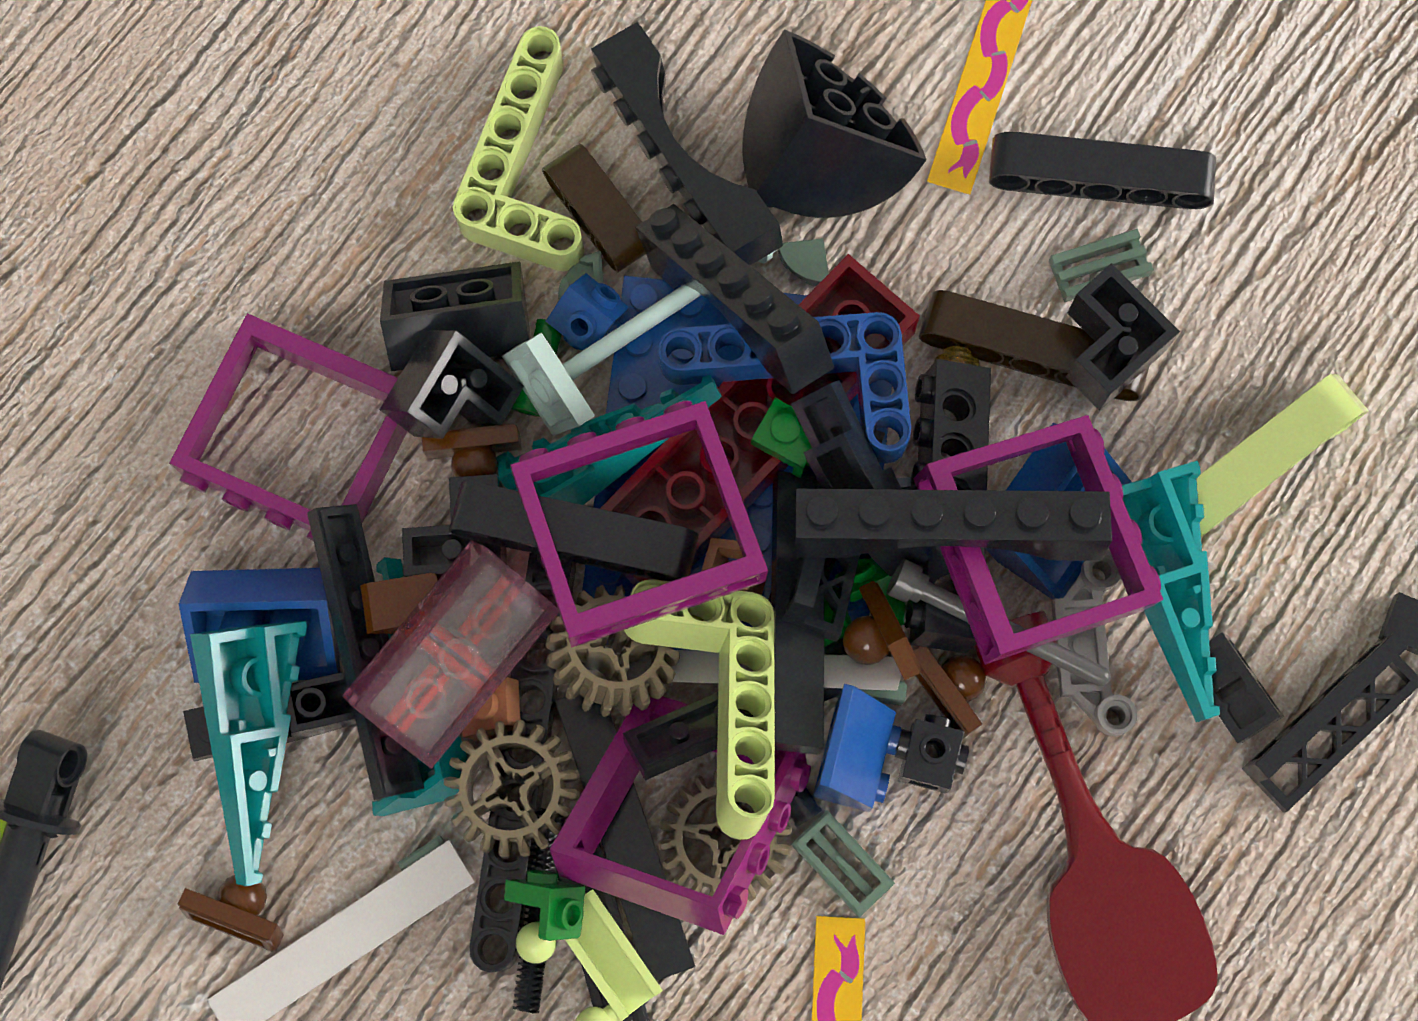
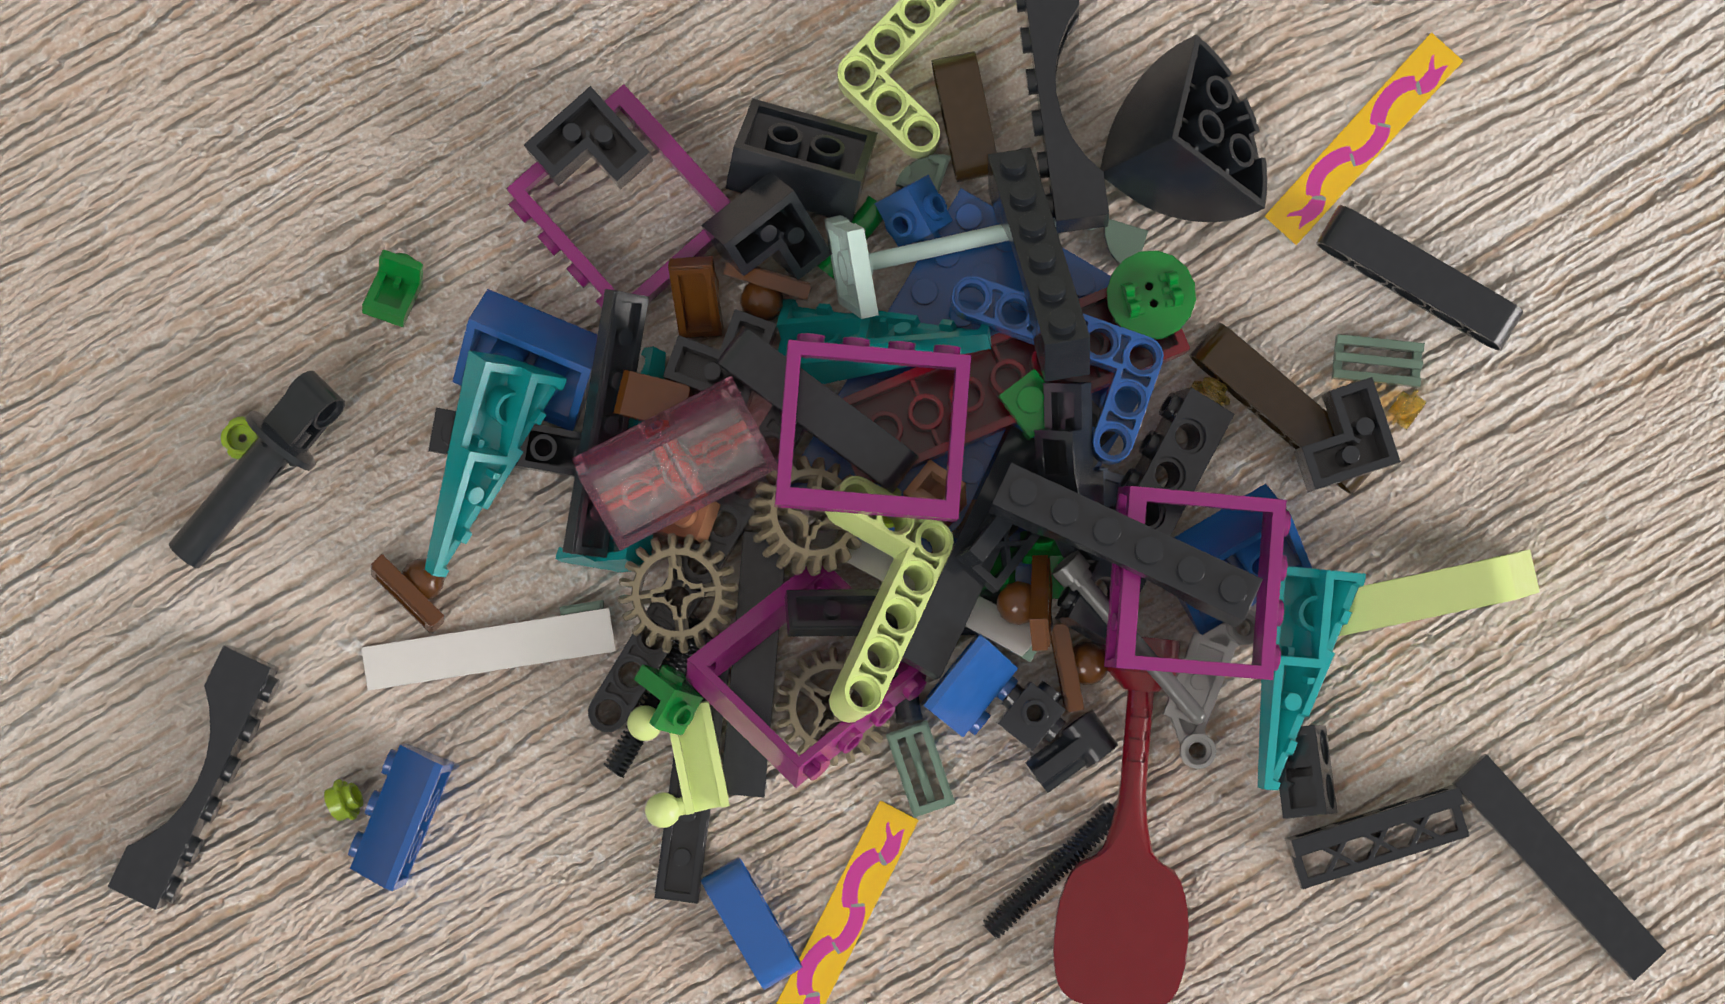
camera: 20 degrees right, 10 degrees up
(95, 612) = (394, 288): none -> green bracket
(225, 367) = (584, 132): none -> black brick
(405, 485) = (696, 296): none -> reddish brown tile
(874, 264) = (1171, 289): none -> green plate
(993, 765) = (1080, 745): none -> black piece
(1025, 910) = (1050, 872): none -> black axle
(1154, 291) = (1406, 408): none -> clear yellow plate

